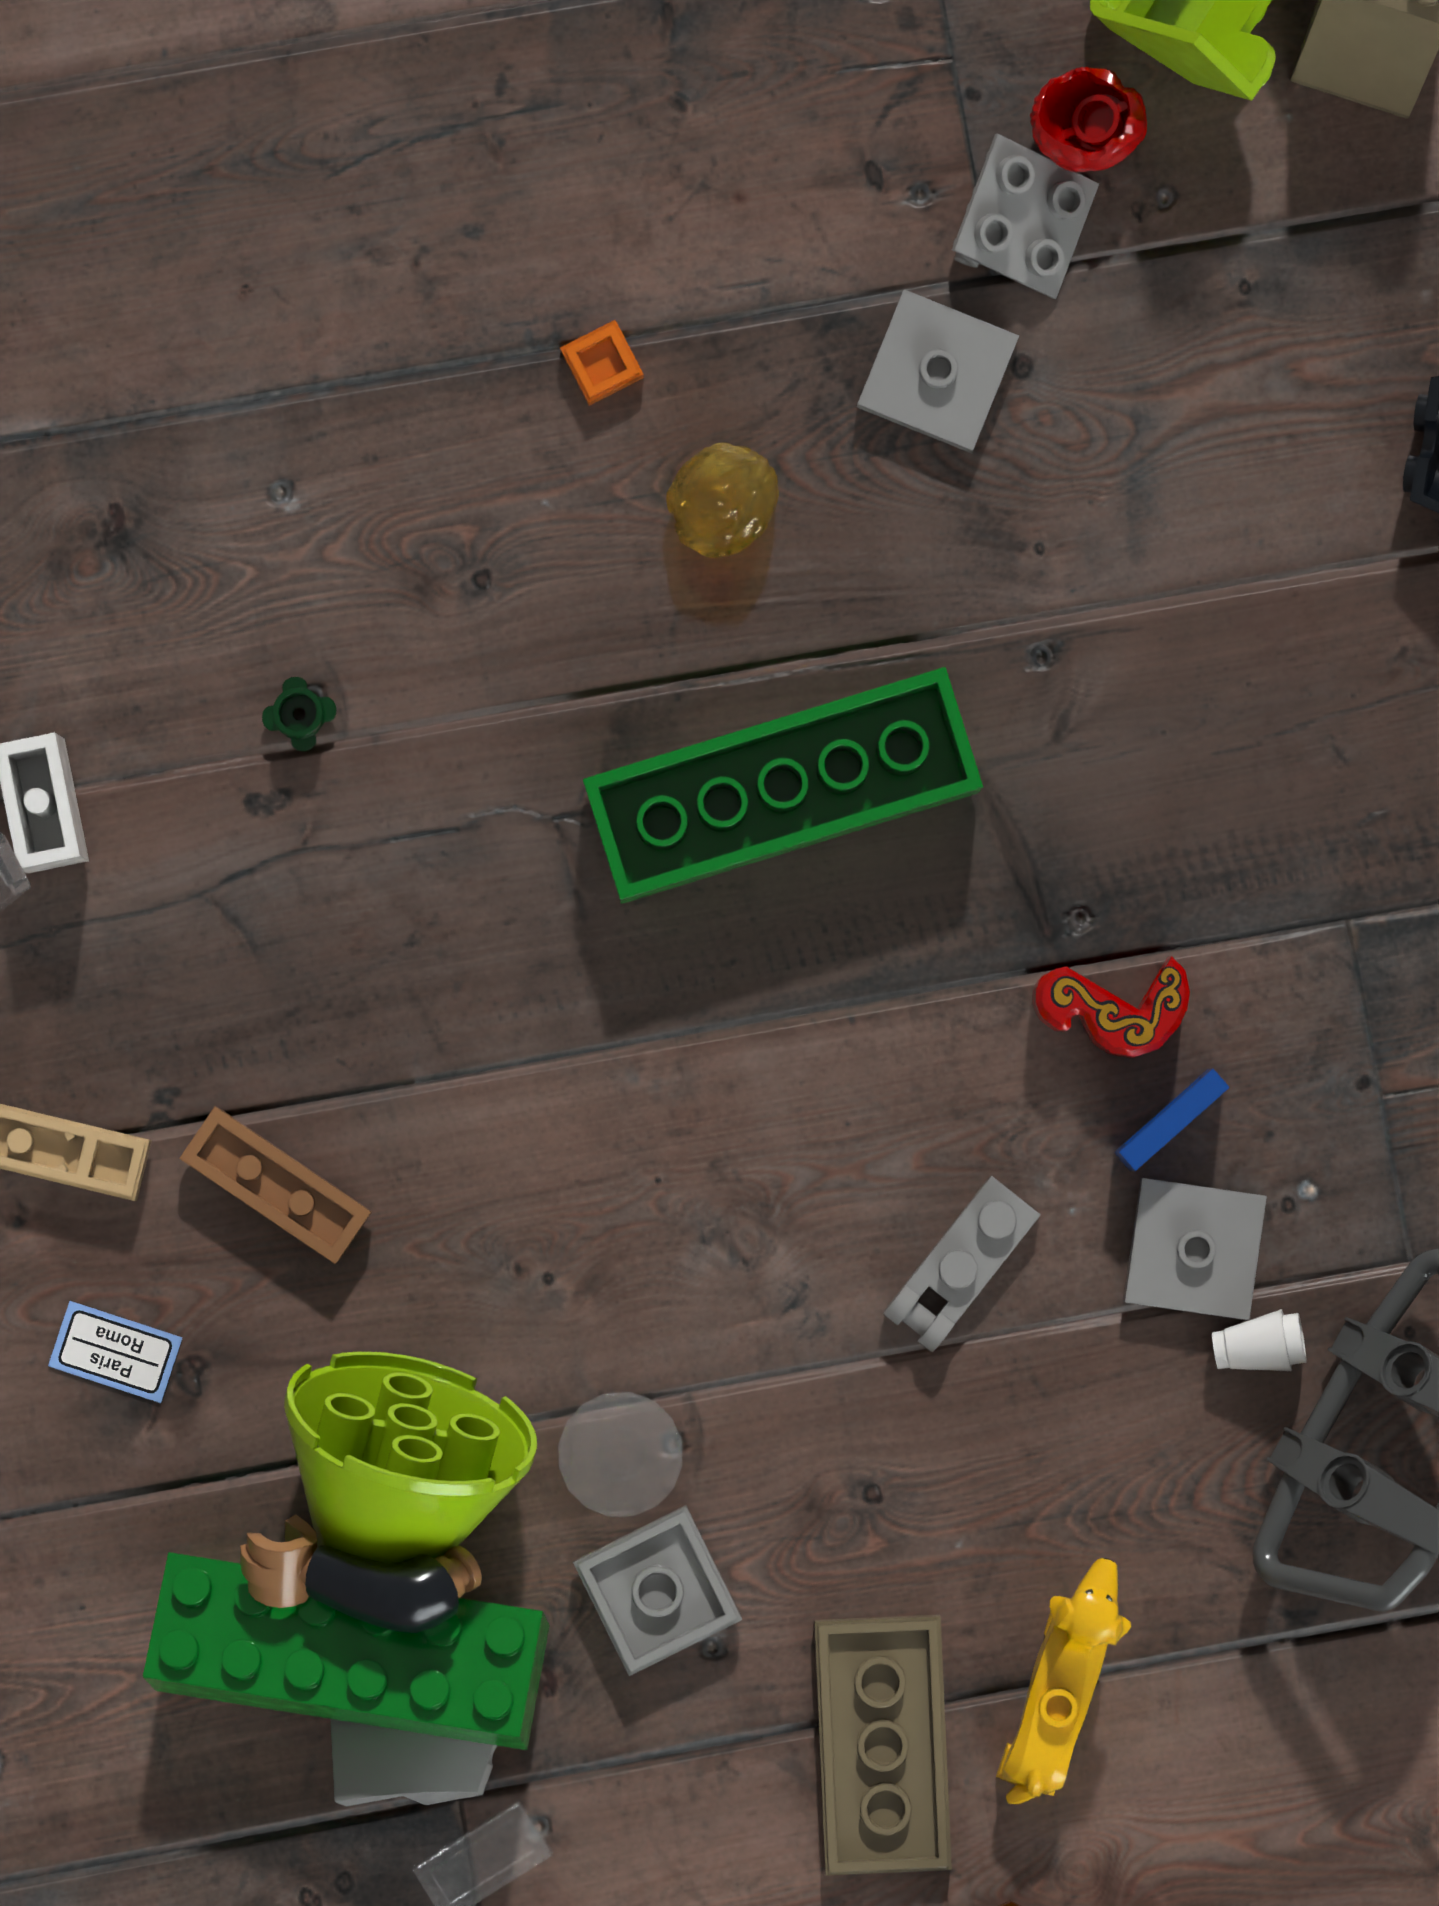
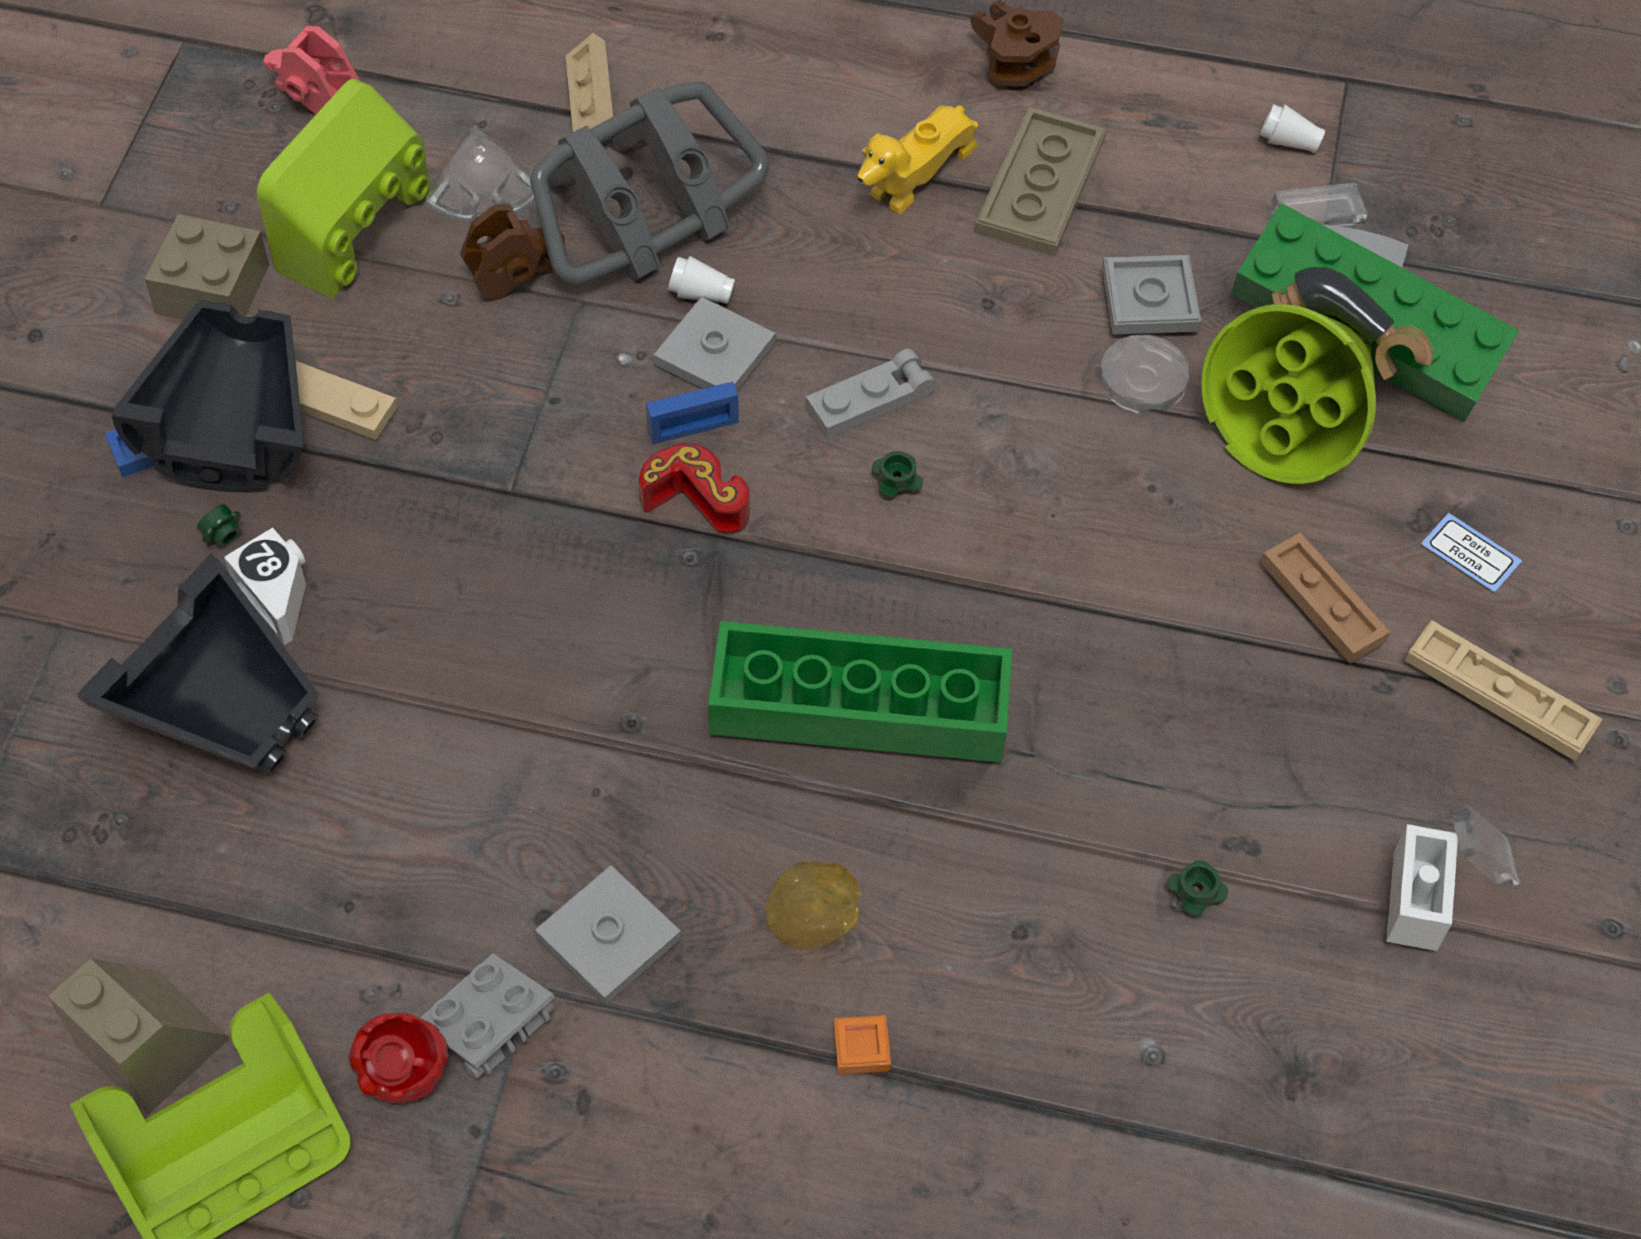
camera: 155 degrees left, 30 degrees down
(875, 1128) = (897, 464): none -> dark green plate

